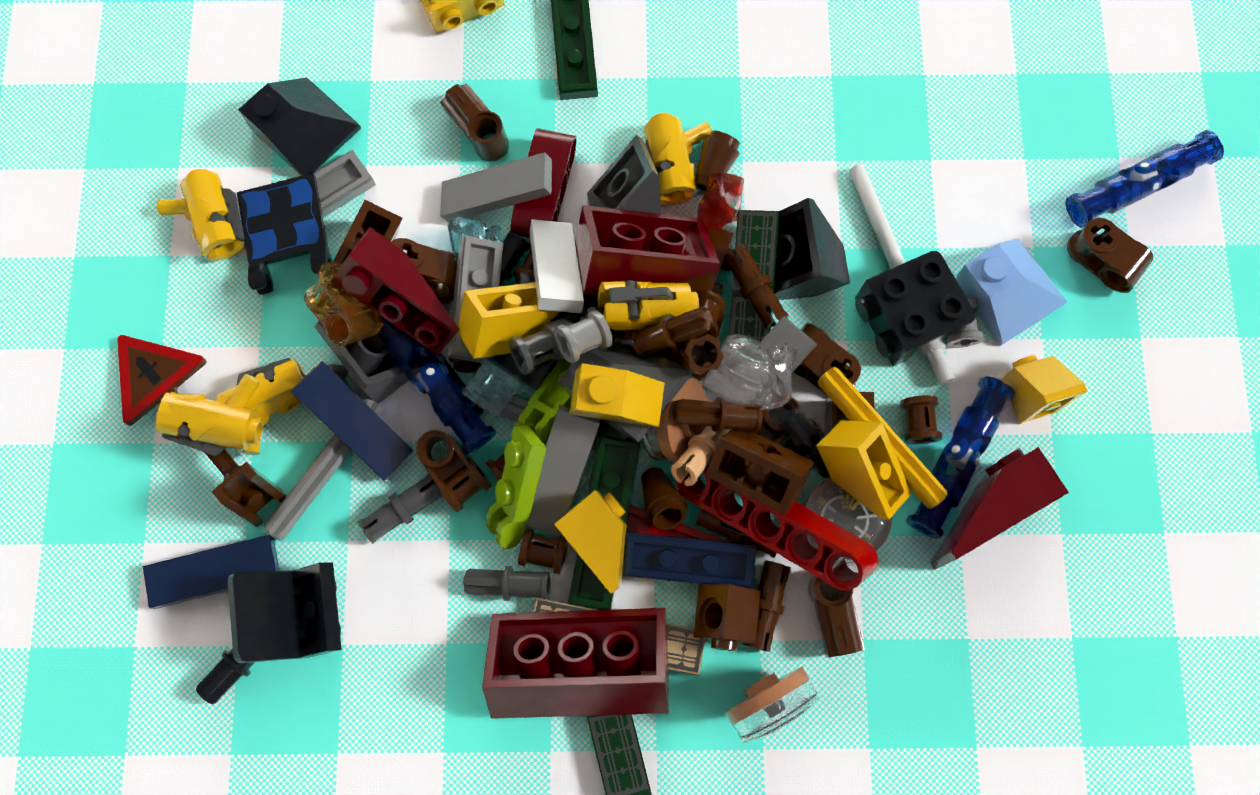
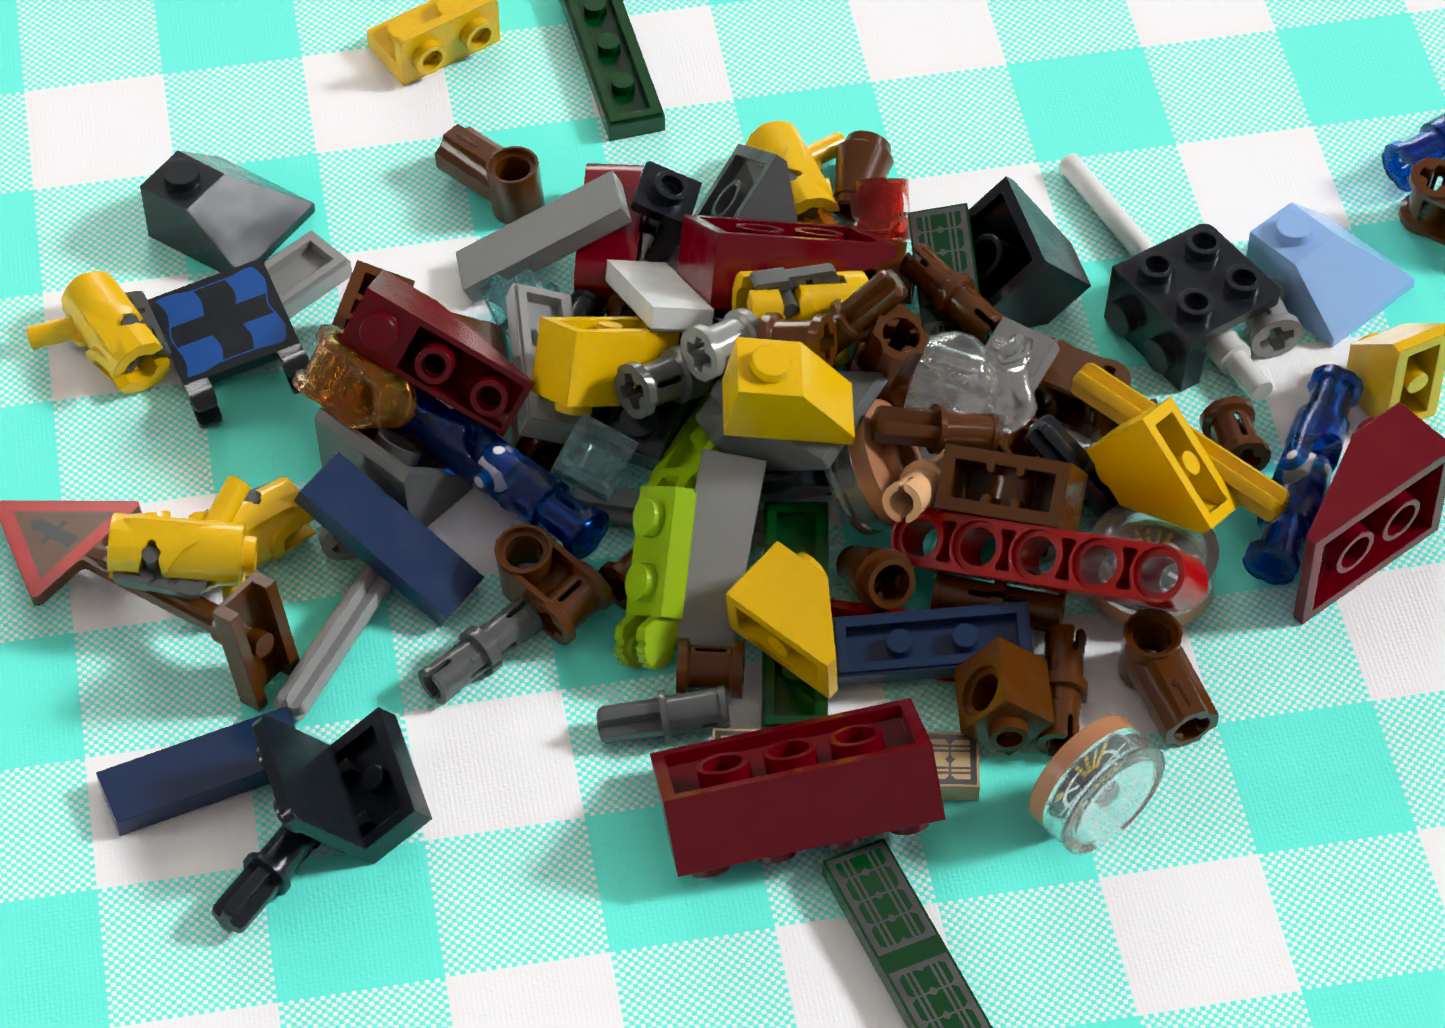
camera: 10 degrees left, 25 degrees down
(580, 175) = (663, 199): none -> black bracket
(631, 347) = (817, 334): none -> reddish brown bush

